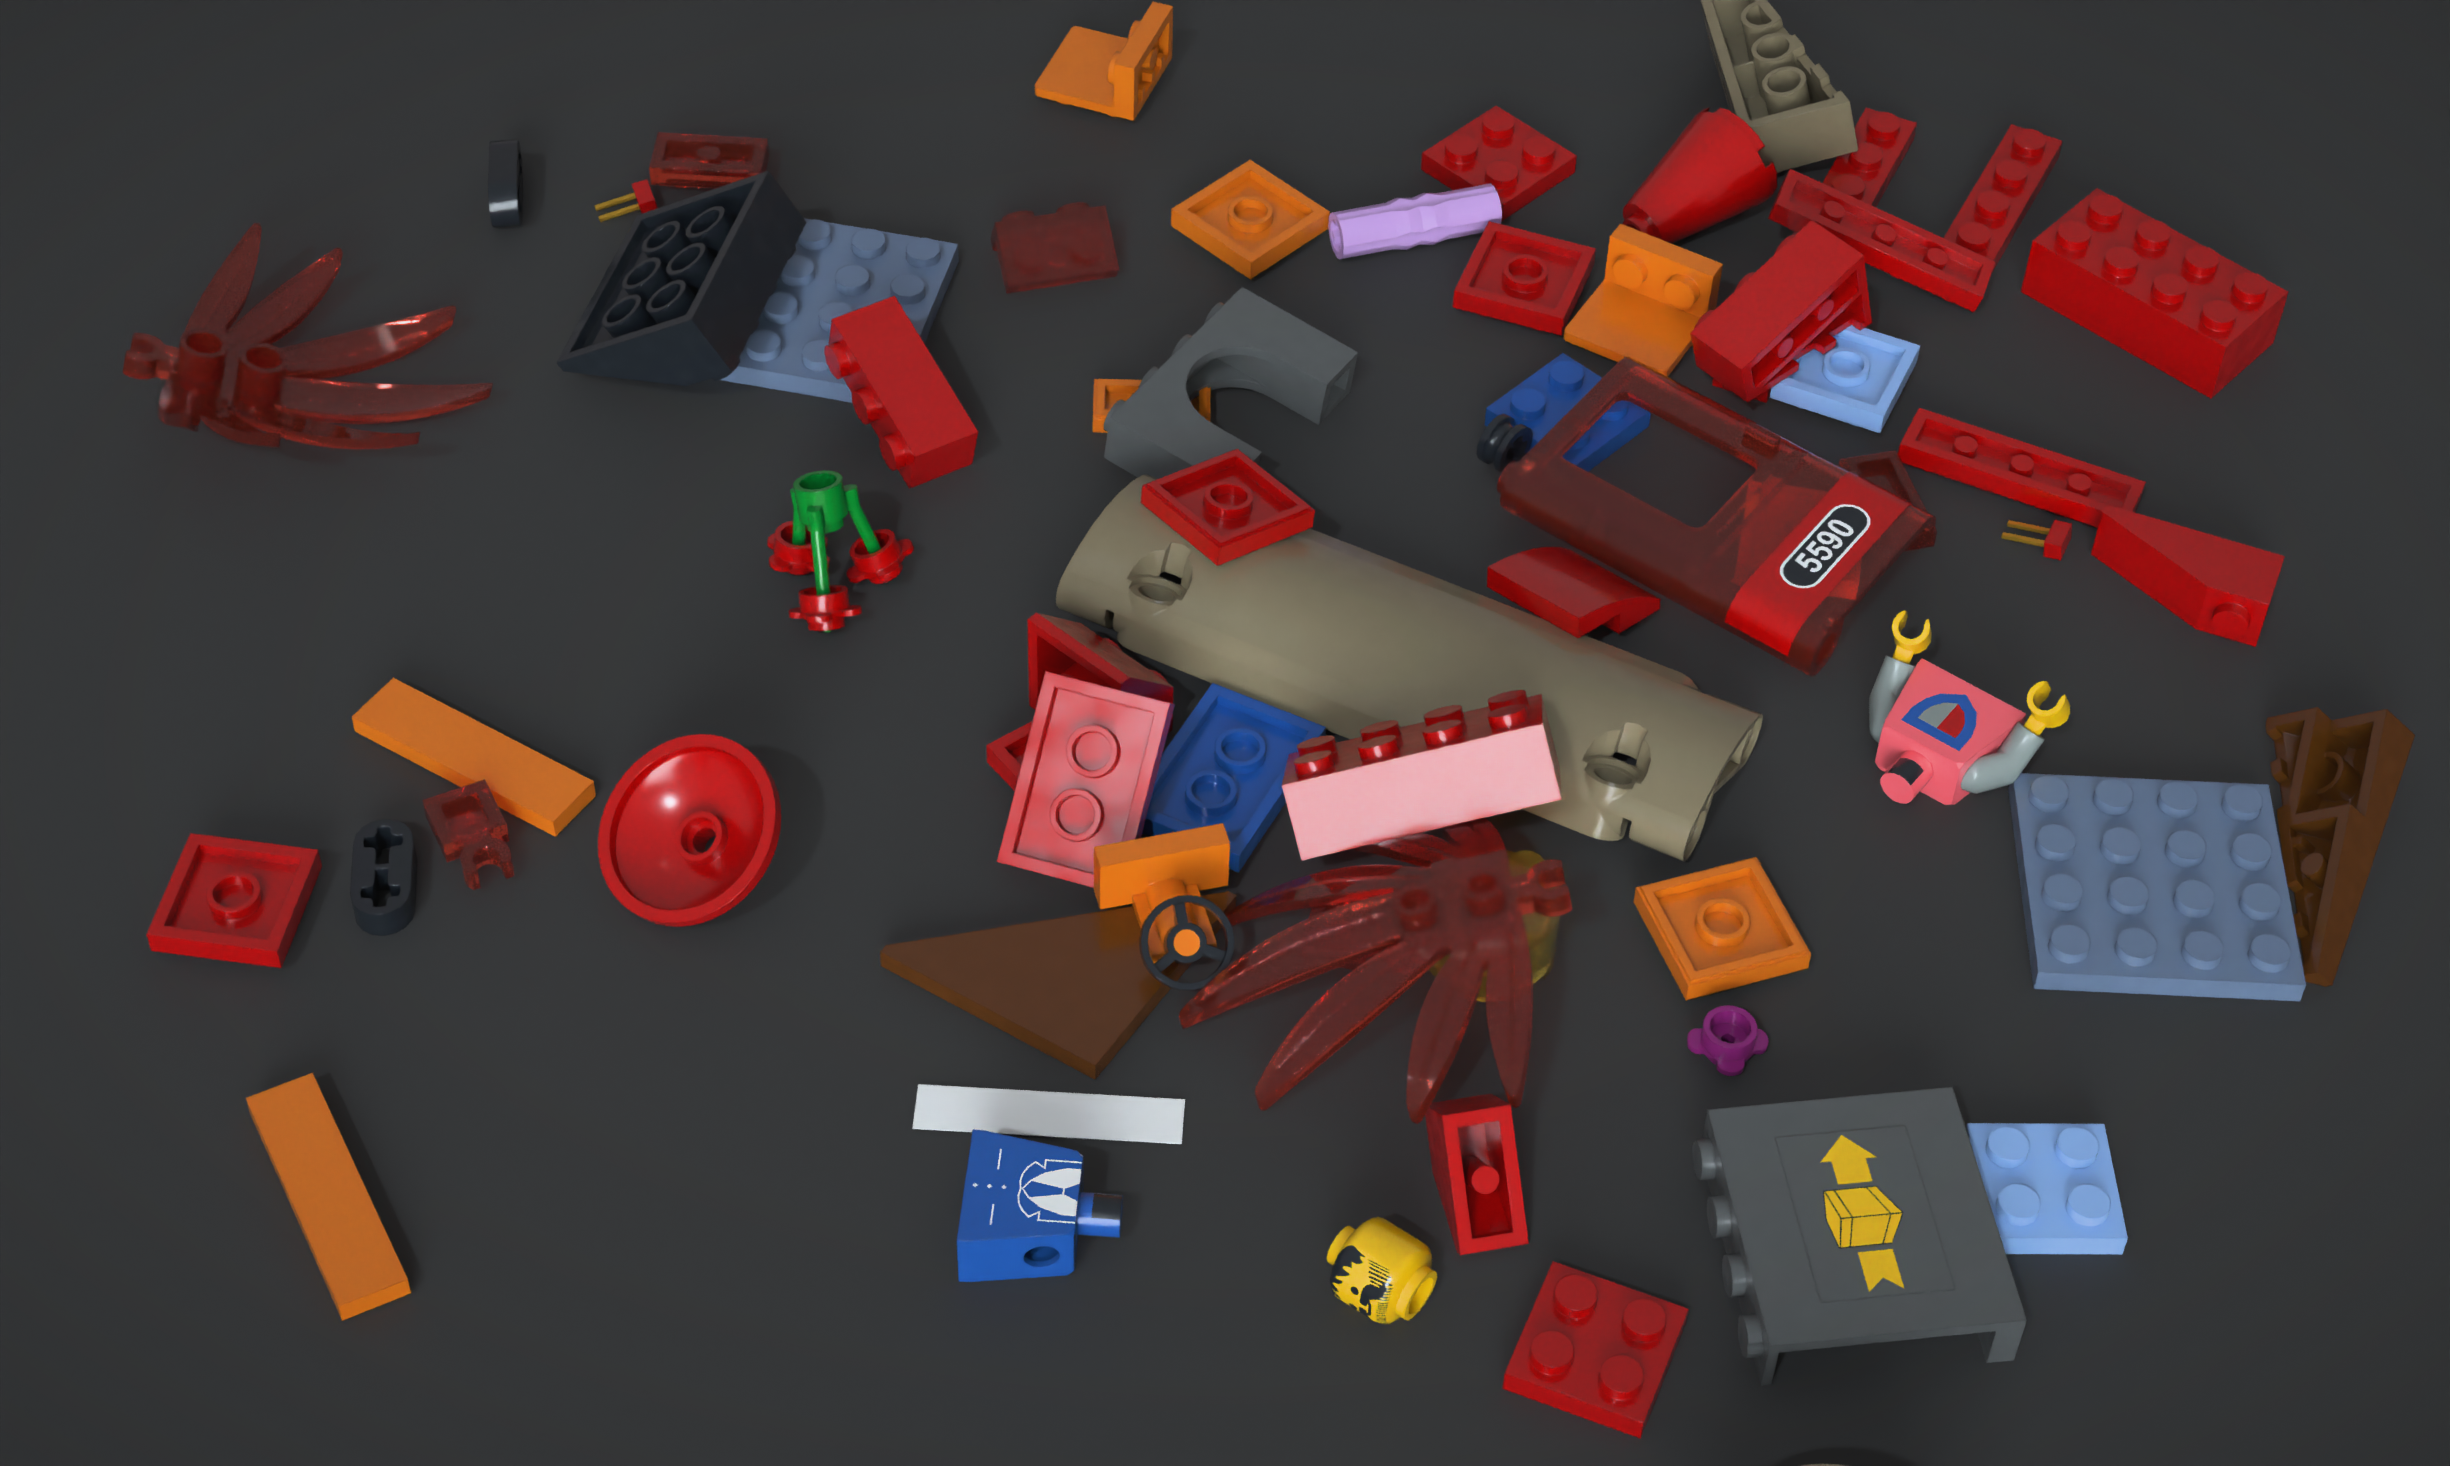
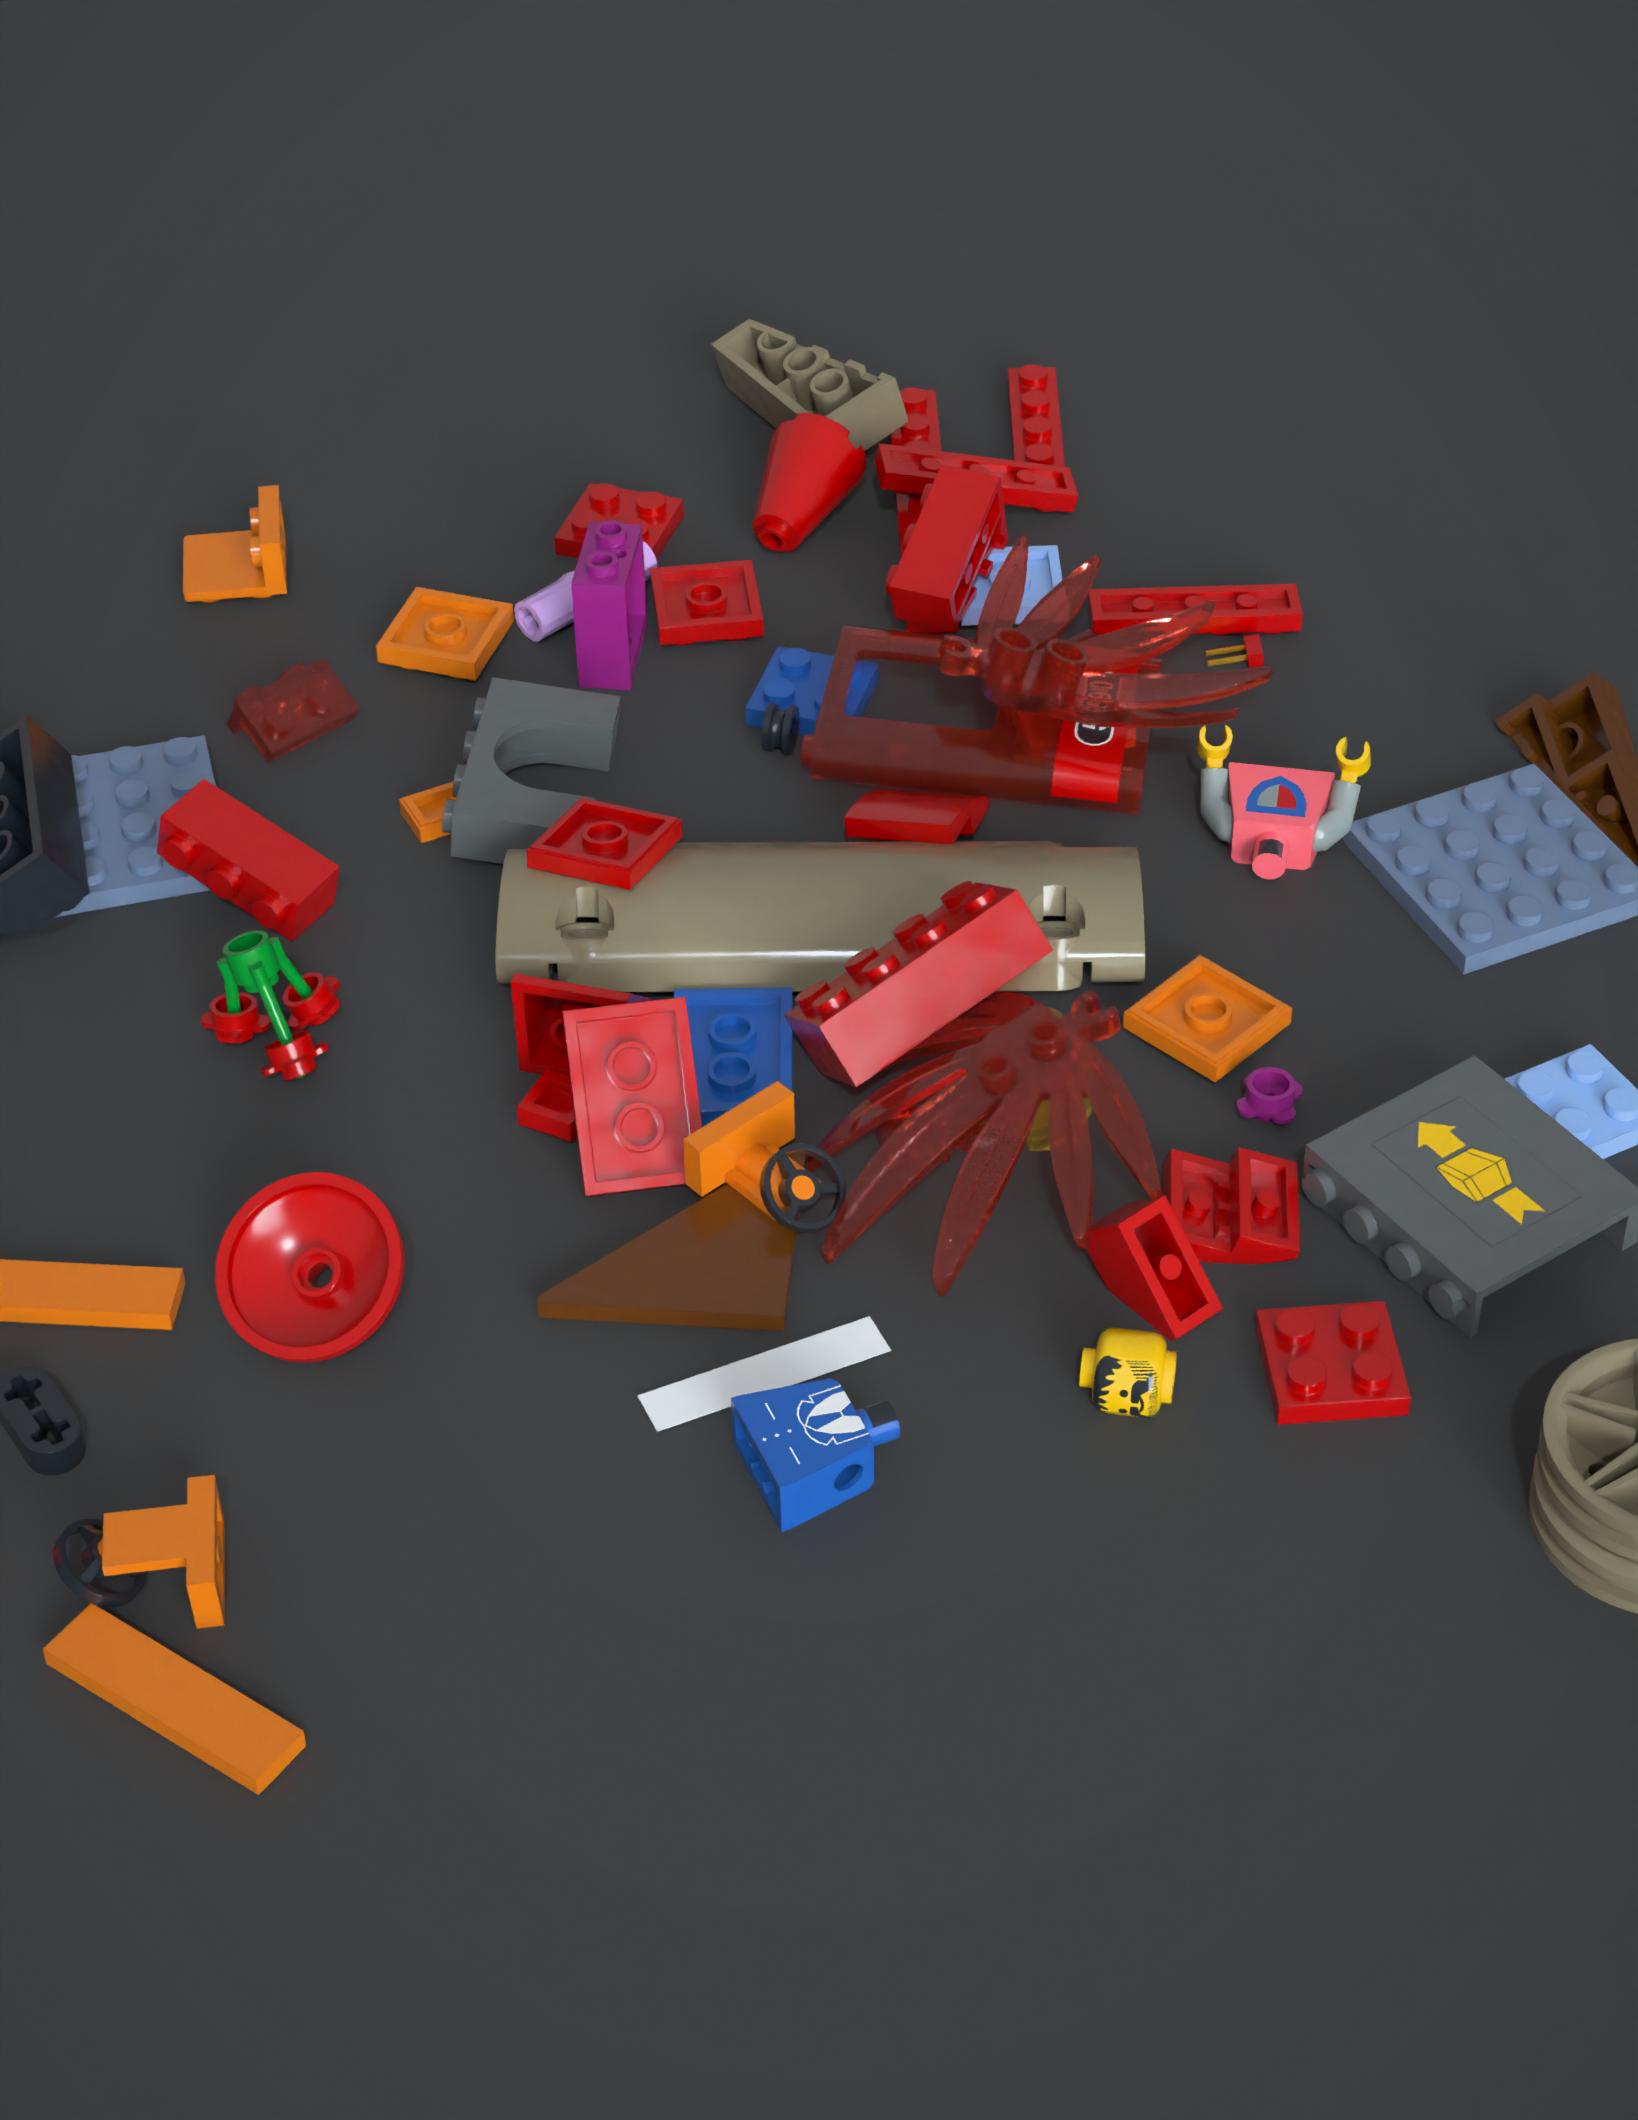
camera: 25 degrees left, 5 degrees down
(419, 1049) = (155, 1540): none -> orange piece
(470, 828) = (97, 1346): clear red plate -> none
(1407, 247) = (610, 605): none -> magenta window
(1607, 1141) = (1235, 1209): none -> red slope
(1646, 301) = (820, 582): orange bracket -> none
(1776, 495) = (1070, 676): none -> clear red plant
(2154, 292) = (1203, 449): red brick -> none
(2193, 574) = (1373, 636): red slope -> none

